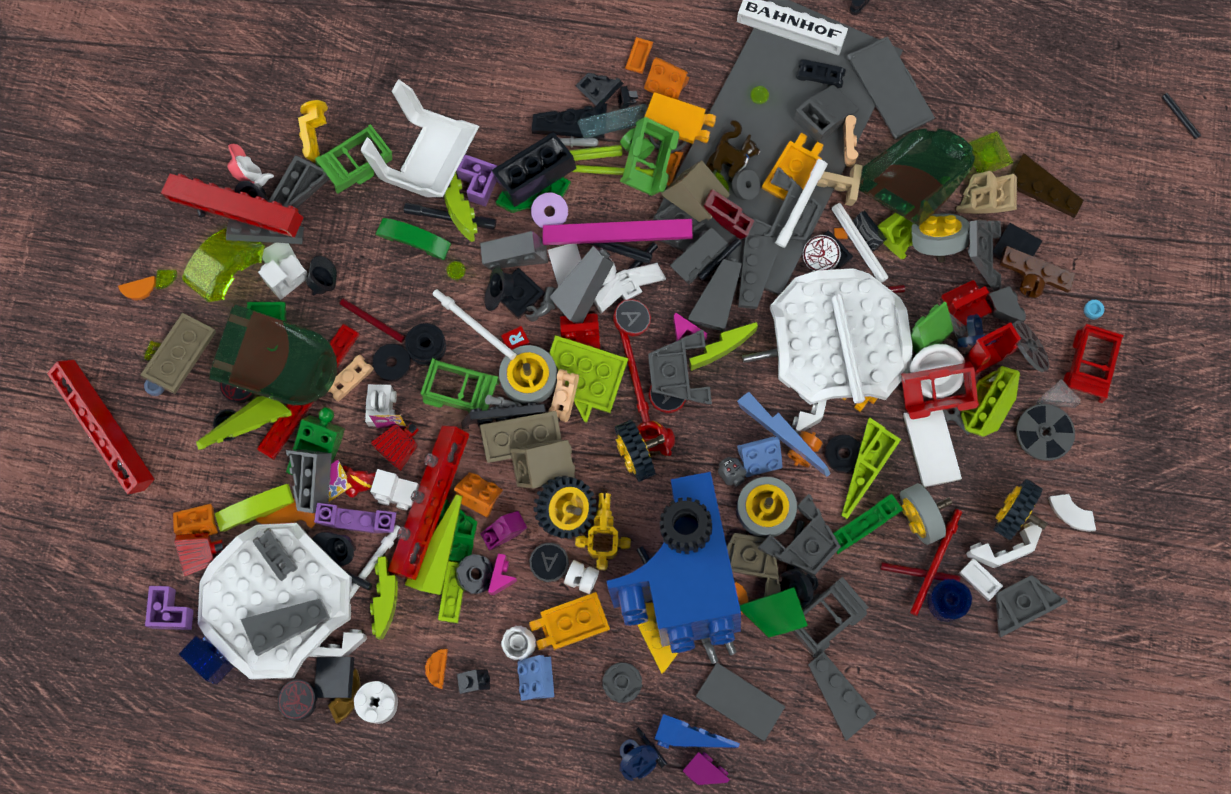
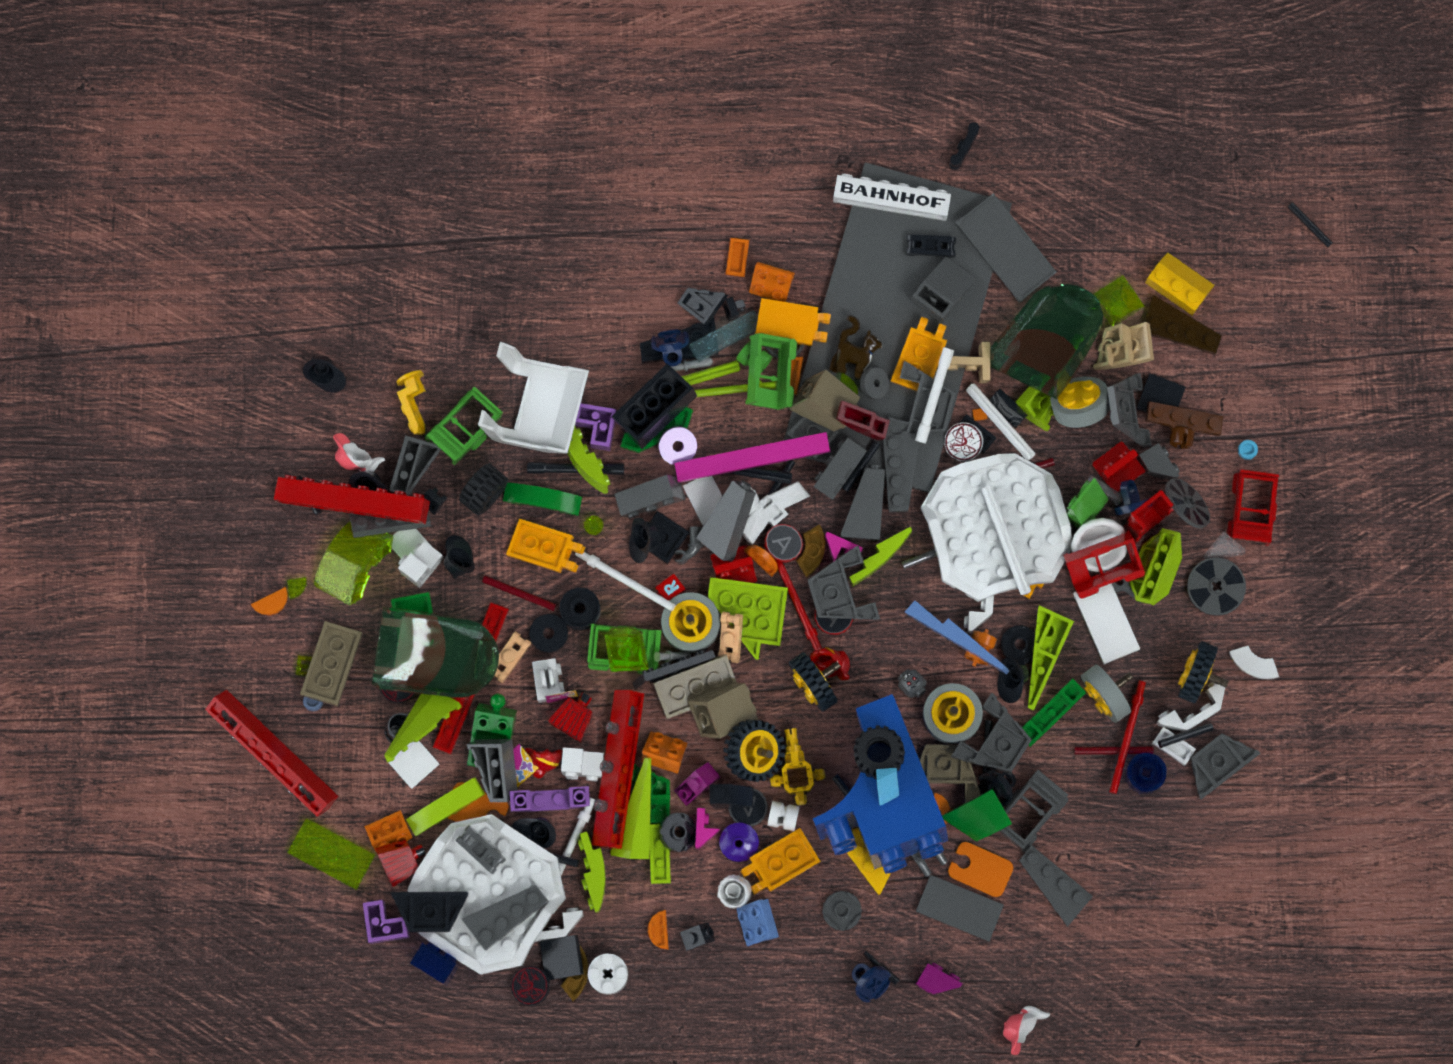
camera: 10 degrees left, 5 degrees up
(135, 534) = (331, 854): none -> clear neon green tile
(212, 605) = (429, 909): none -> black wing
(235, 461) = (414, 763): none -> white sticker
(236, 91) = (324, 374): none -> black piece
(310, 221) = (436, 501): none -> black tile
(357, 216) = (483, 489): none -> black tyre
(404, 281) = (543, 547): none -> light orange tile
(458, 387) = (626, 649): none -> clear neon green slope
(533, 548) = (730, 796): none -> black slope
(543, 593) = (741, 832): none -> dark purple dish
(562, 116) = (670, 341): none -> dark blue tile
(609, 328) = (763, 559): none -> orange tile
(659, 331) = (813, 550): none -> pearl gold tile
(680, 734) = (905, 949): blue wedge -> none
(688, 559) = (887, 784): none -> medium azure slope
(759, 95) = (871, 281): clear neon green plate -> none
(761, 456) = (938, 662): medium blue bracket -> none
(773, 669) = (986, 870): none -> orange piece
(830, 487) = (1011, 684): none -> black piece
(850, 141) = (972, 316): light nougat plate -> none
(994, 570) = (1185, 735): none -> black piece
(1049, 147) = (1179, 283): none -> yellow slope

